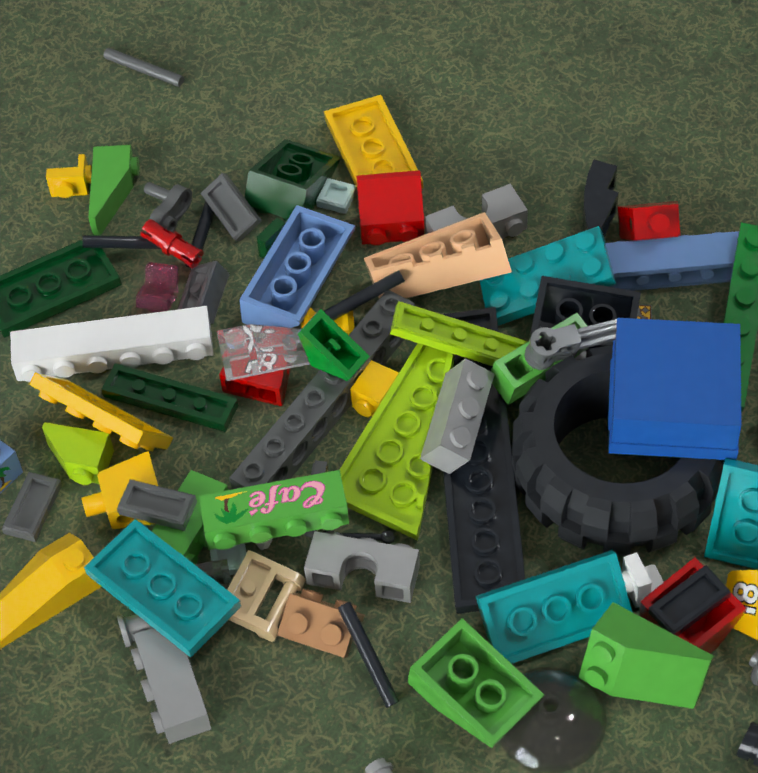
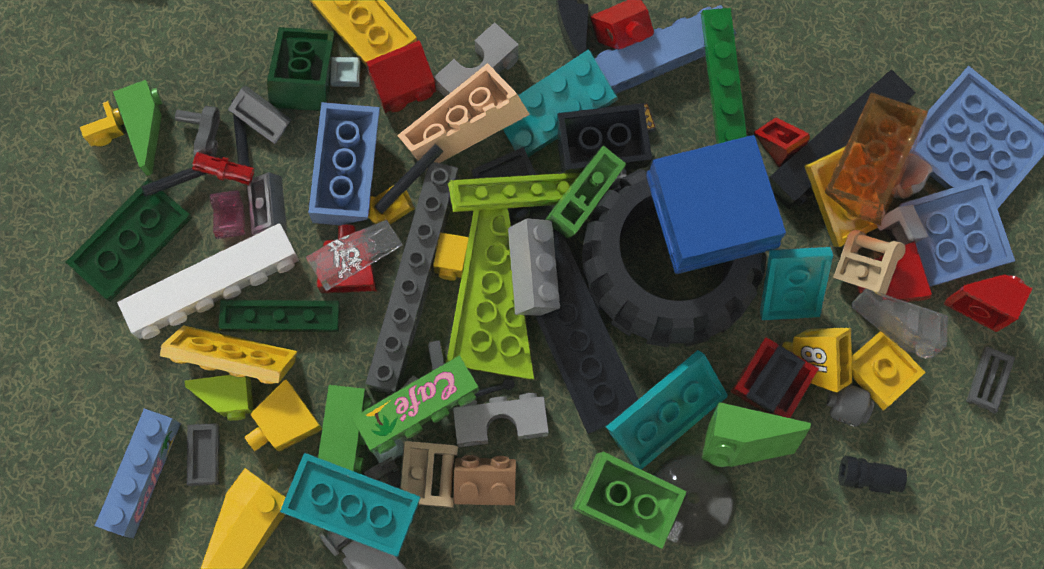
camera: 25 degrees left, 20 degrees up
(157, 505) = (314, 428): dark grey tile -> none
(268, 236) = (307, 135): dark green tile -> none
(331, 347) = (410, 241): green slope -> none
(368, 654) = (535, 499): black bar -> none
(565, 342) = (610, 178): dark grey connector -> none
(639, 579) = (725, 361): white bracket -> none

